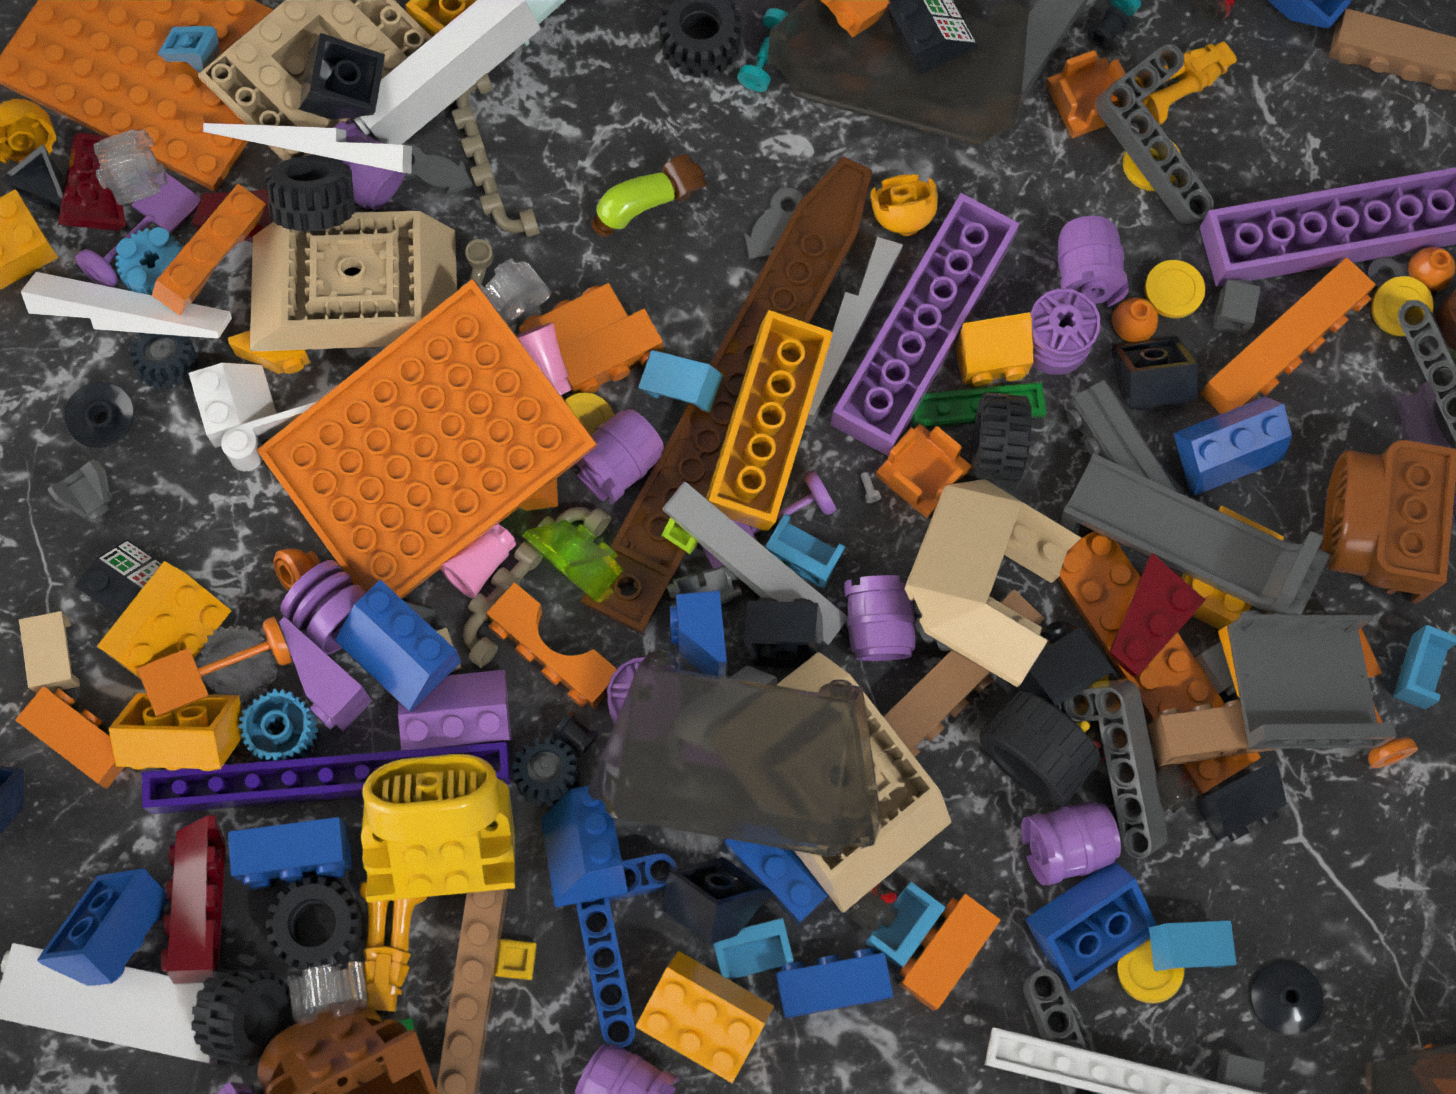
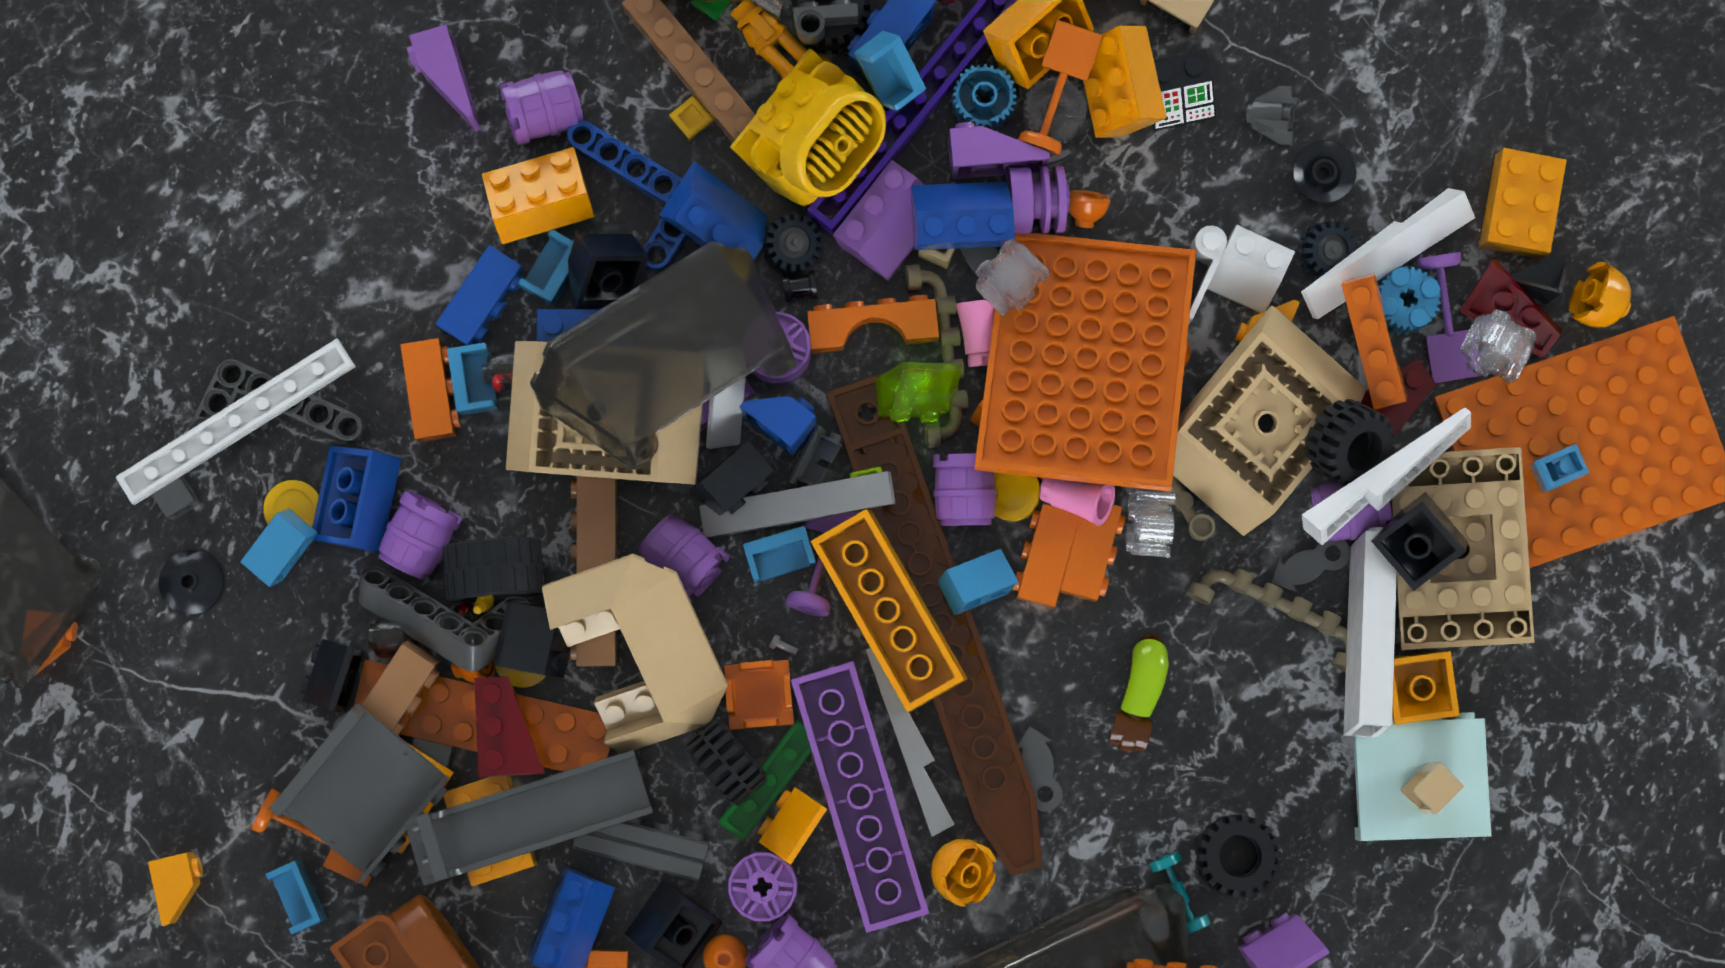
camera: 135 degrees right, 10 degrees up
(312, 903) = (838, 13): none -> dark grey plate
(326, 808) = (890, 70): none -> dark azure panel
(415, 555) = (1010, 277): none -> clear brick

